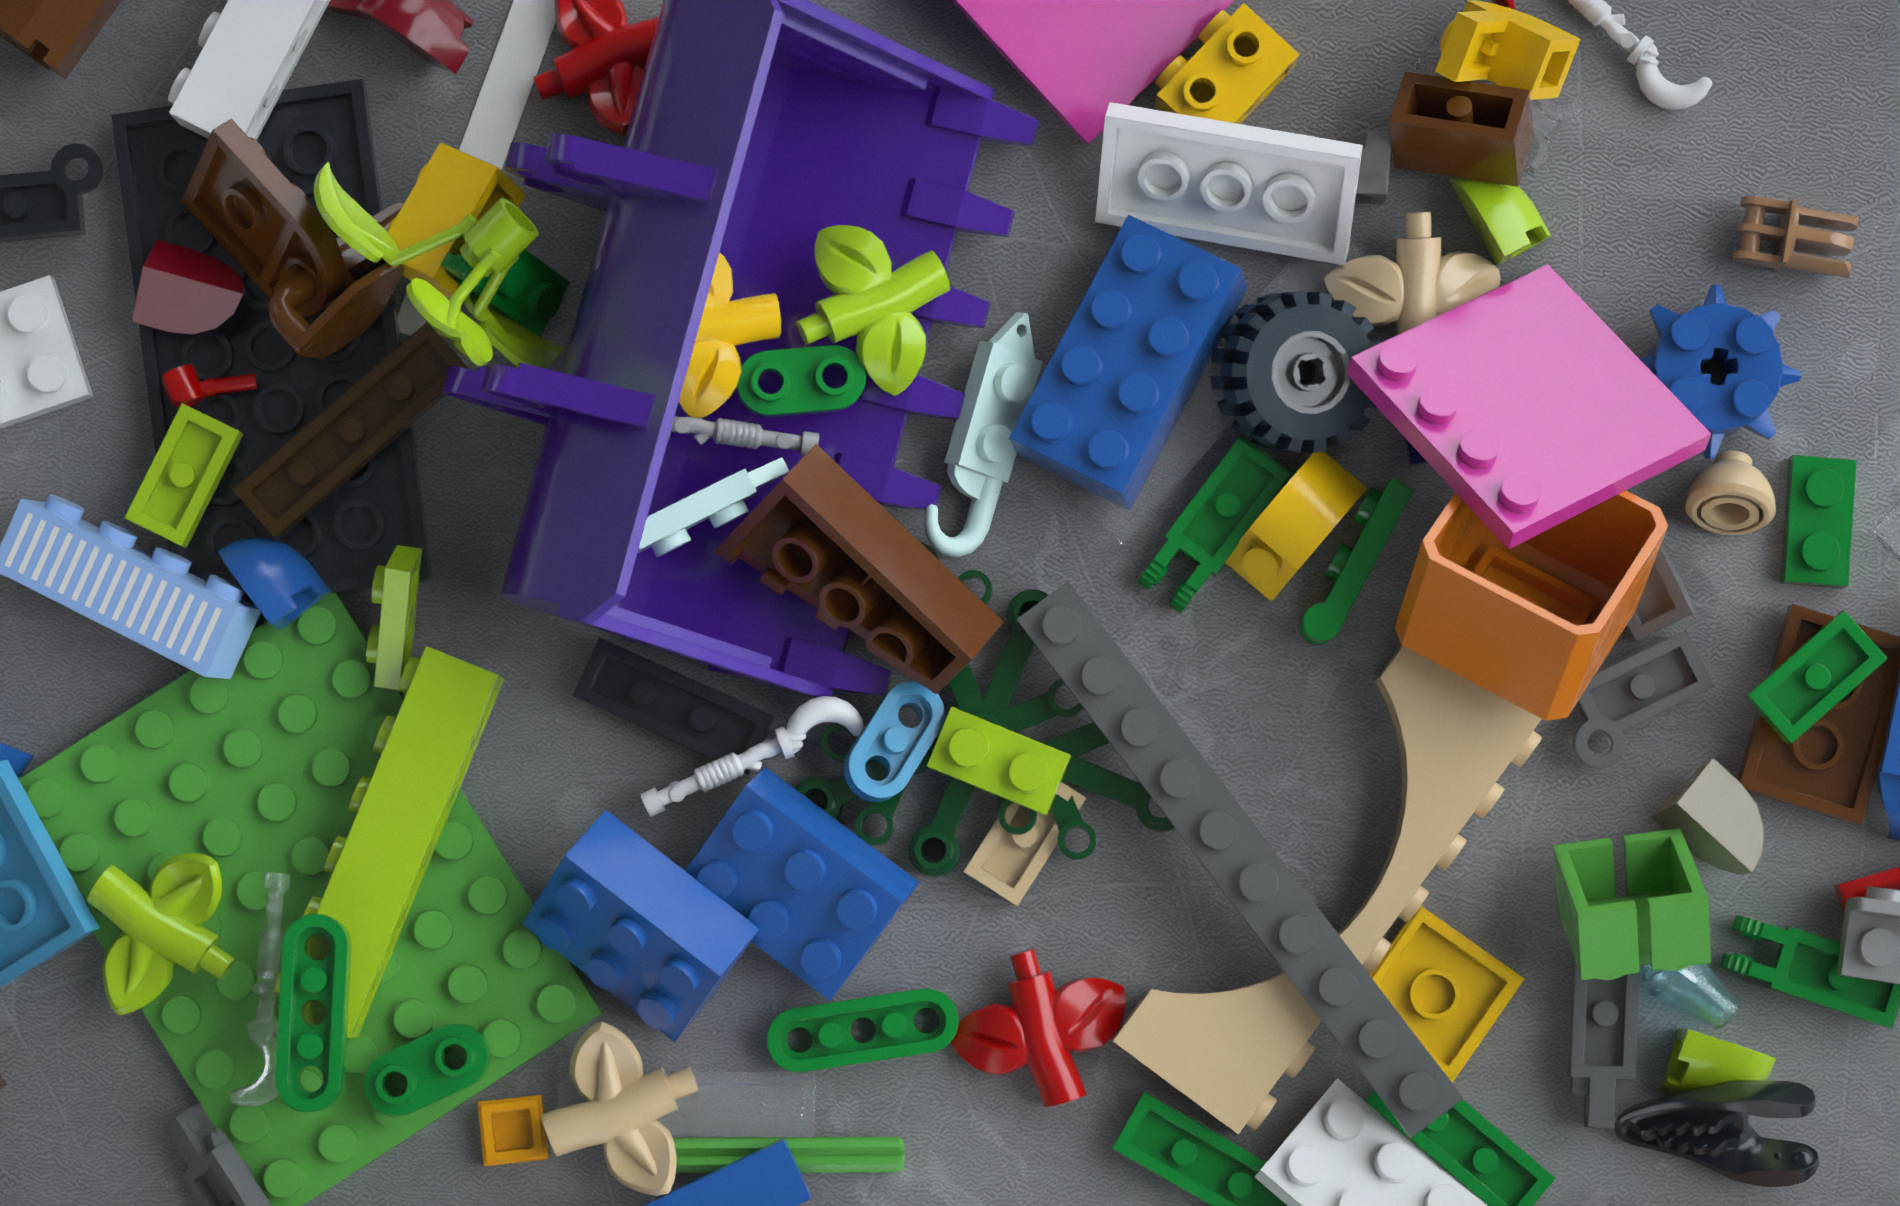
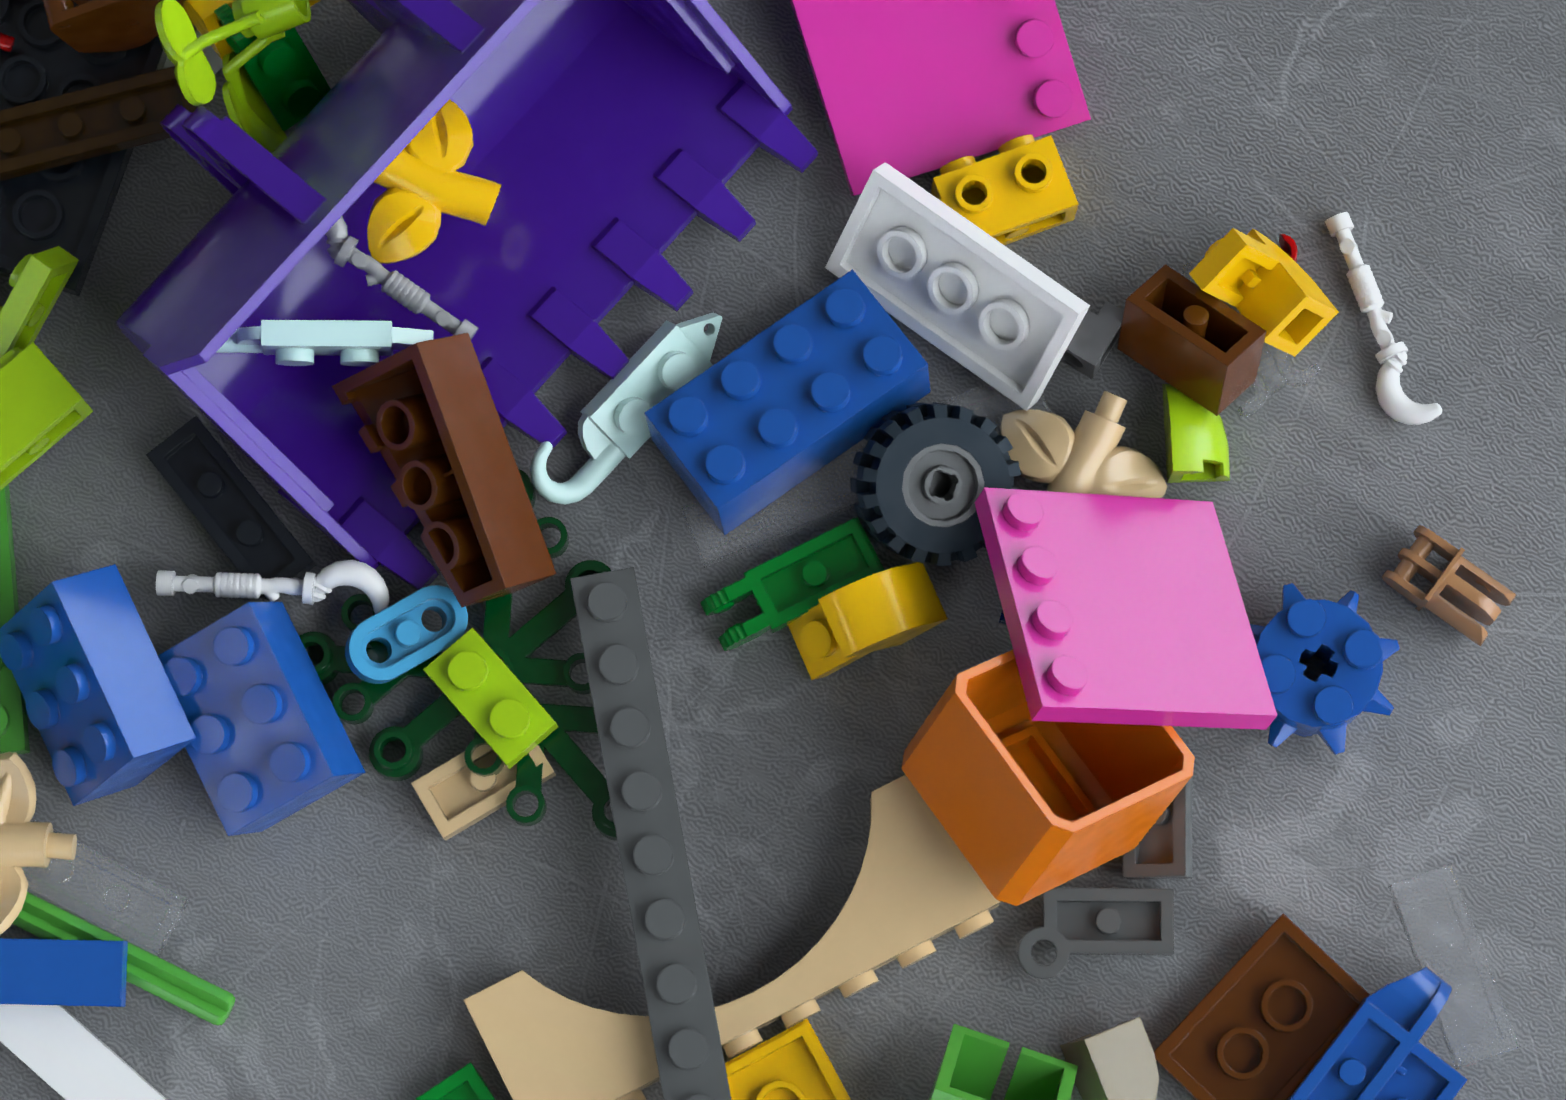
camera: 25 degrees right, 5 degrees down
(801, 381) = (485, 274): green plate -> none
(832, 1037) = (220, 875): green plate -> none
(873, 303) = (585, 238): lime plant -> none
(1042, 1028) = (410, 960): red plant -> none
(1353, 565) = (901, 682): green plate -> none
(1731, 496) = (1274, 789): tan brick -> none
(1816, 677) = (1268, 988): green plate -> none
(1818, 521) = (1345, 853): green plate -> none

